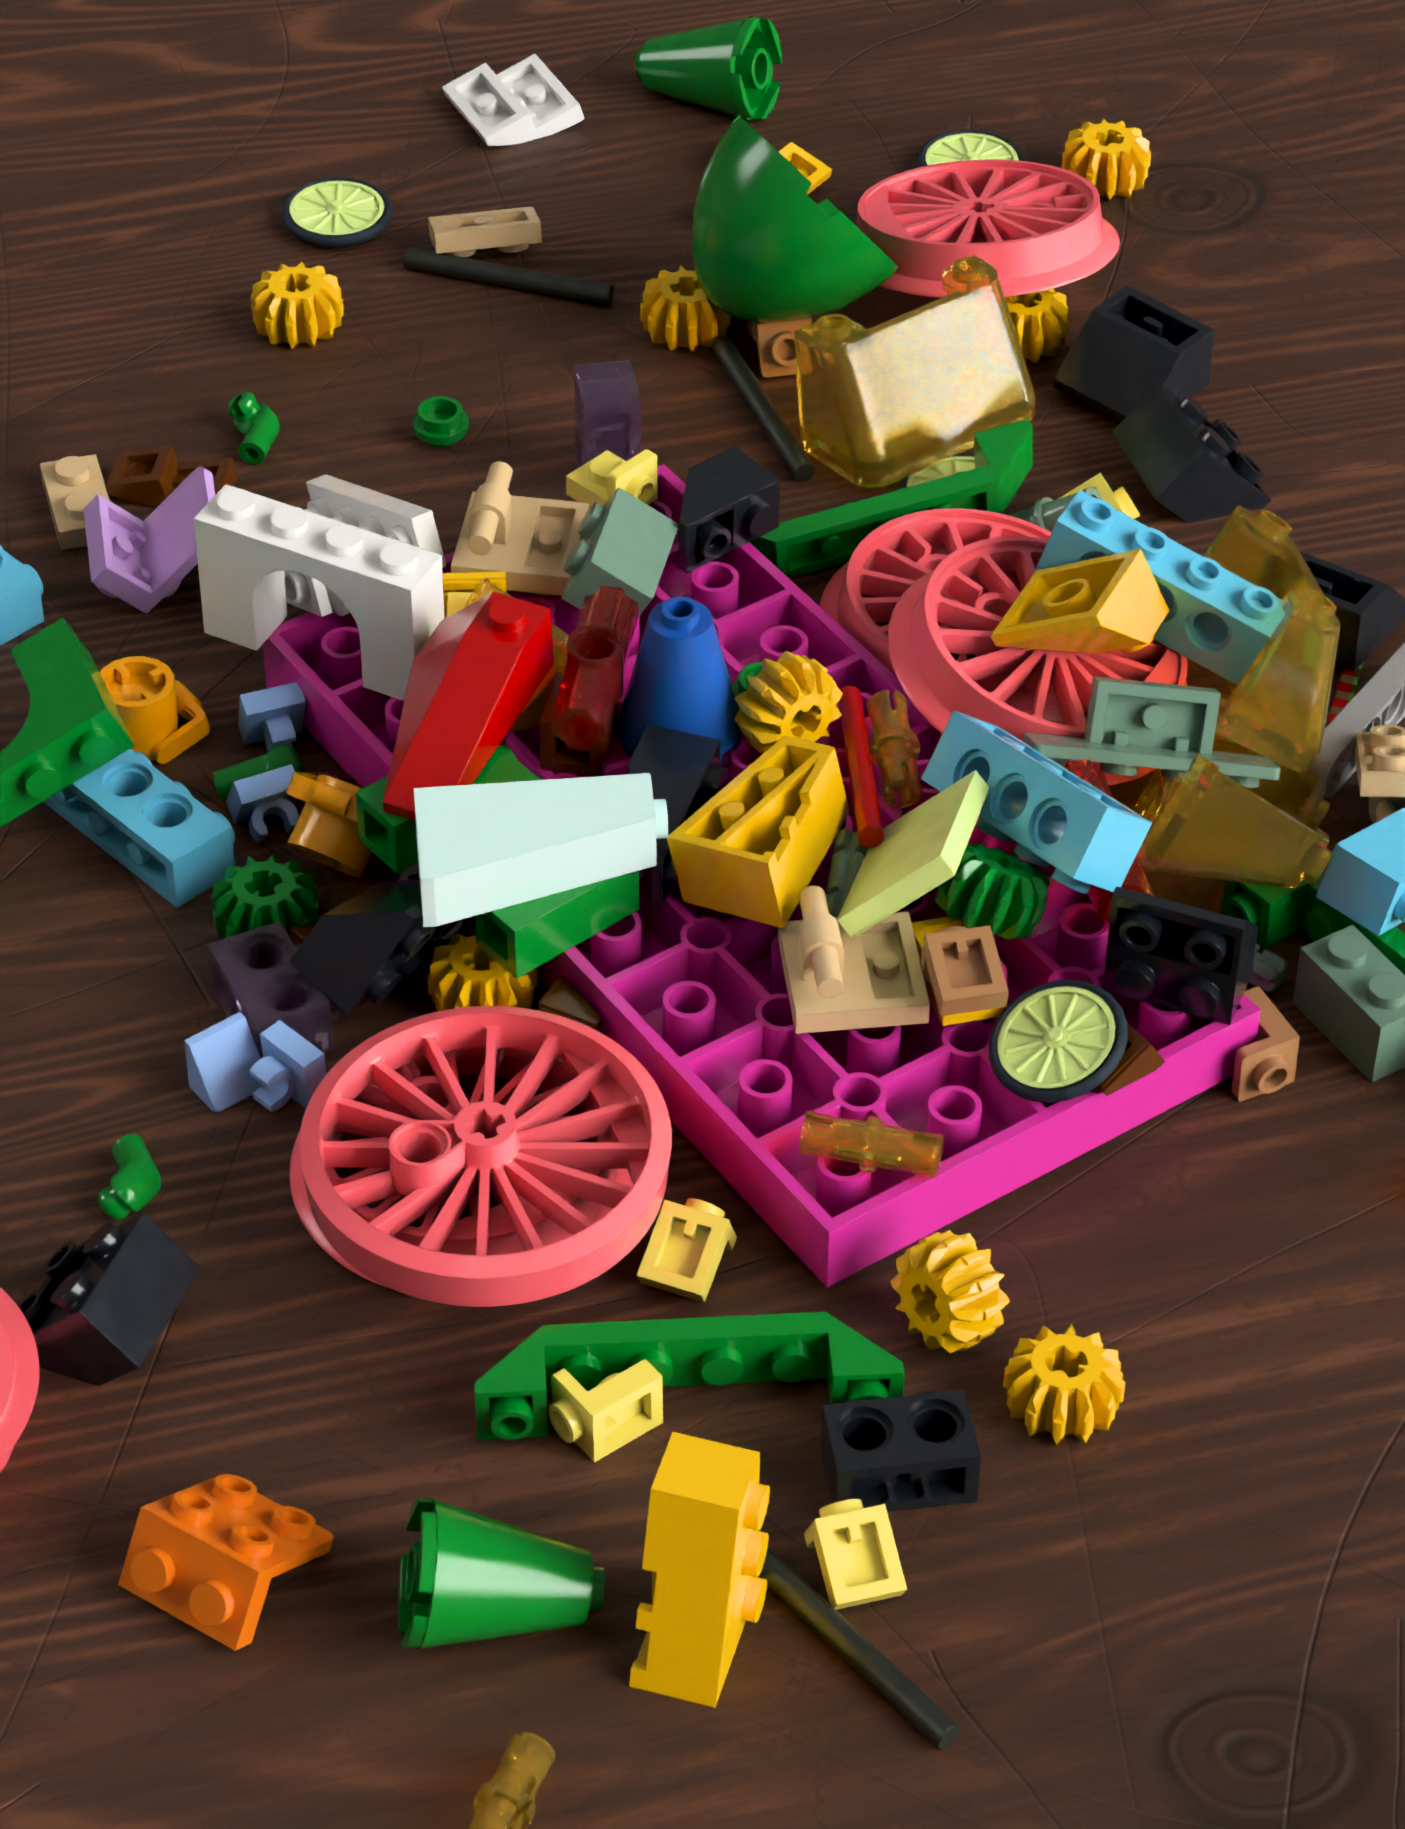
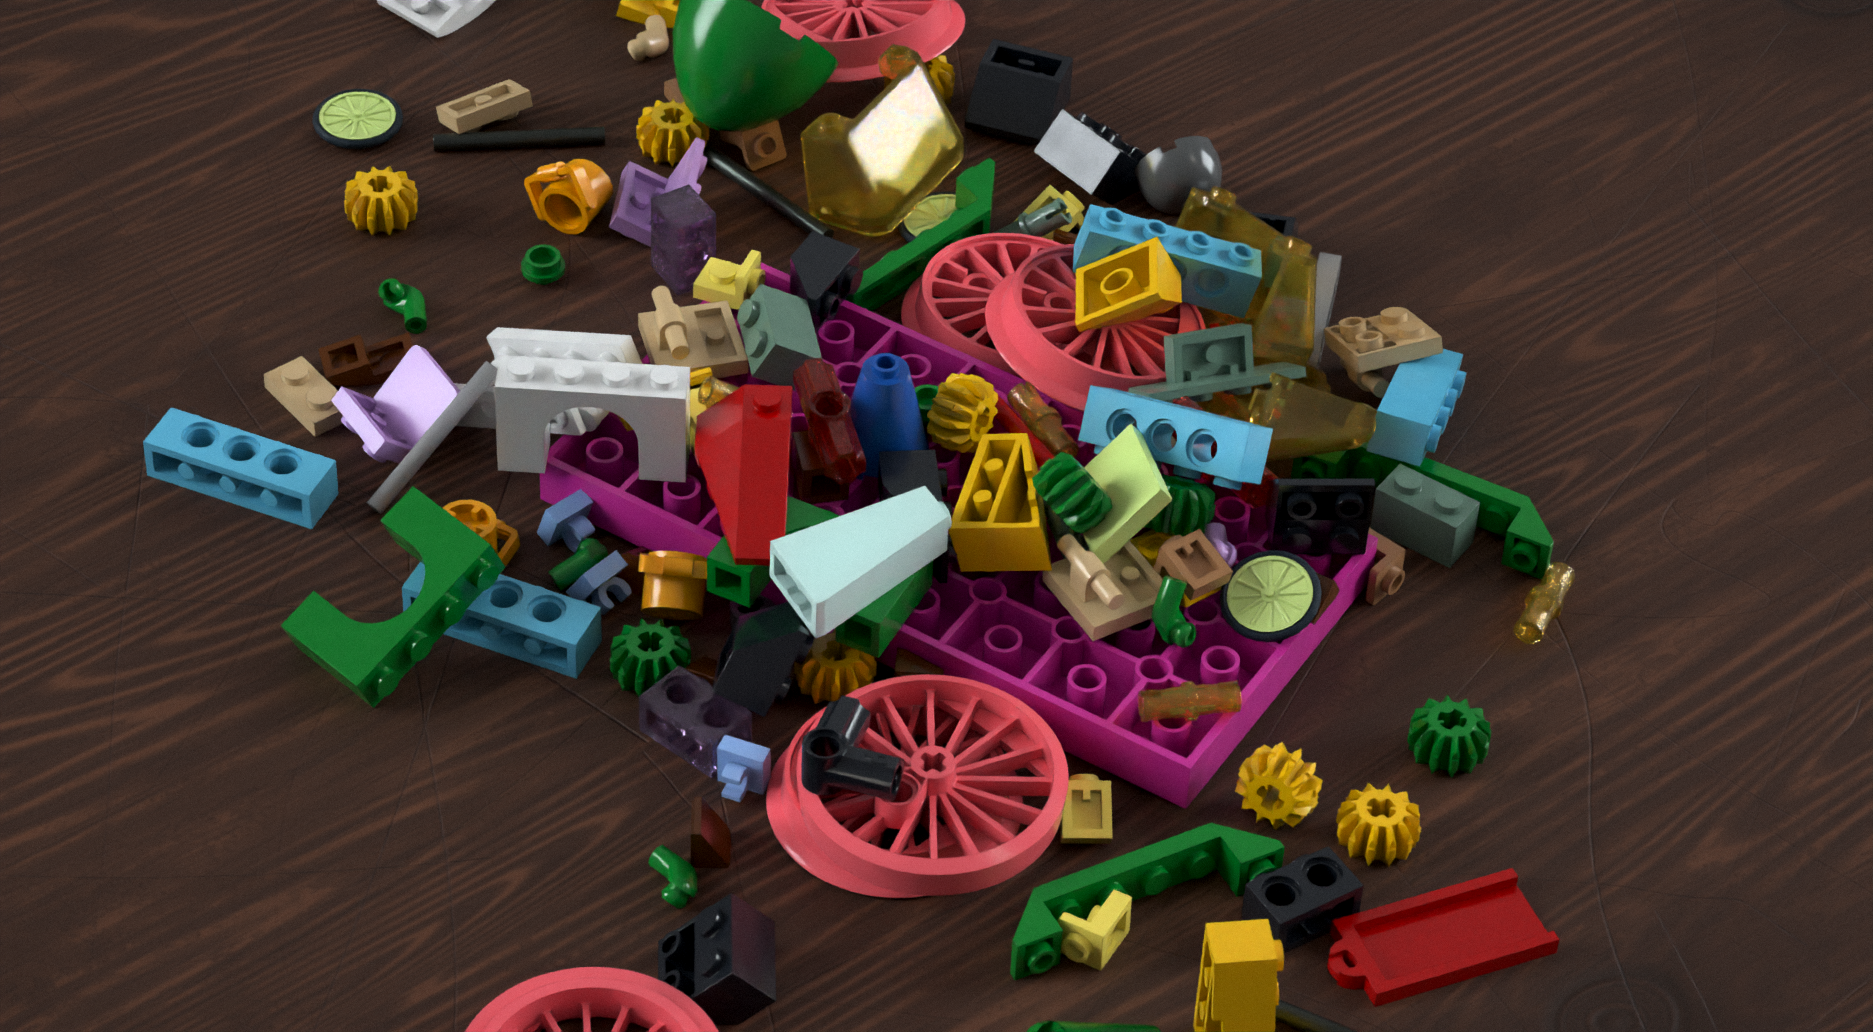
camera: 25 degrees left, 0 degrees up
(138, 597) = (433, 437): none -> light grey bar
(198, 1140) = (708, 837): none -> reddish brown slope
(221, 1063) = (691, 776): light blue slope -> none
(354, 1084) = (835, 761): none -> black piece
(518, 350) = (573, 196): none -> light orange piece
(609, 348) = (638, 185): none -> lavender bracket
(842, 833) = (1072, 492): none -> green gear
(856, 1553) = (1315, 974): light yellow bracket -> none
(904, 1029) = (1168, 616): none -> green arm
(1026, 960) = (1217, 536): none -> lavender arm
(1068, 1562) = (1438, 939): none -> red piece
(1230, 1296) = (1449, 736): none -> green gear
(1294, 488) = (1169, 176): none -> dark grey cylinder

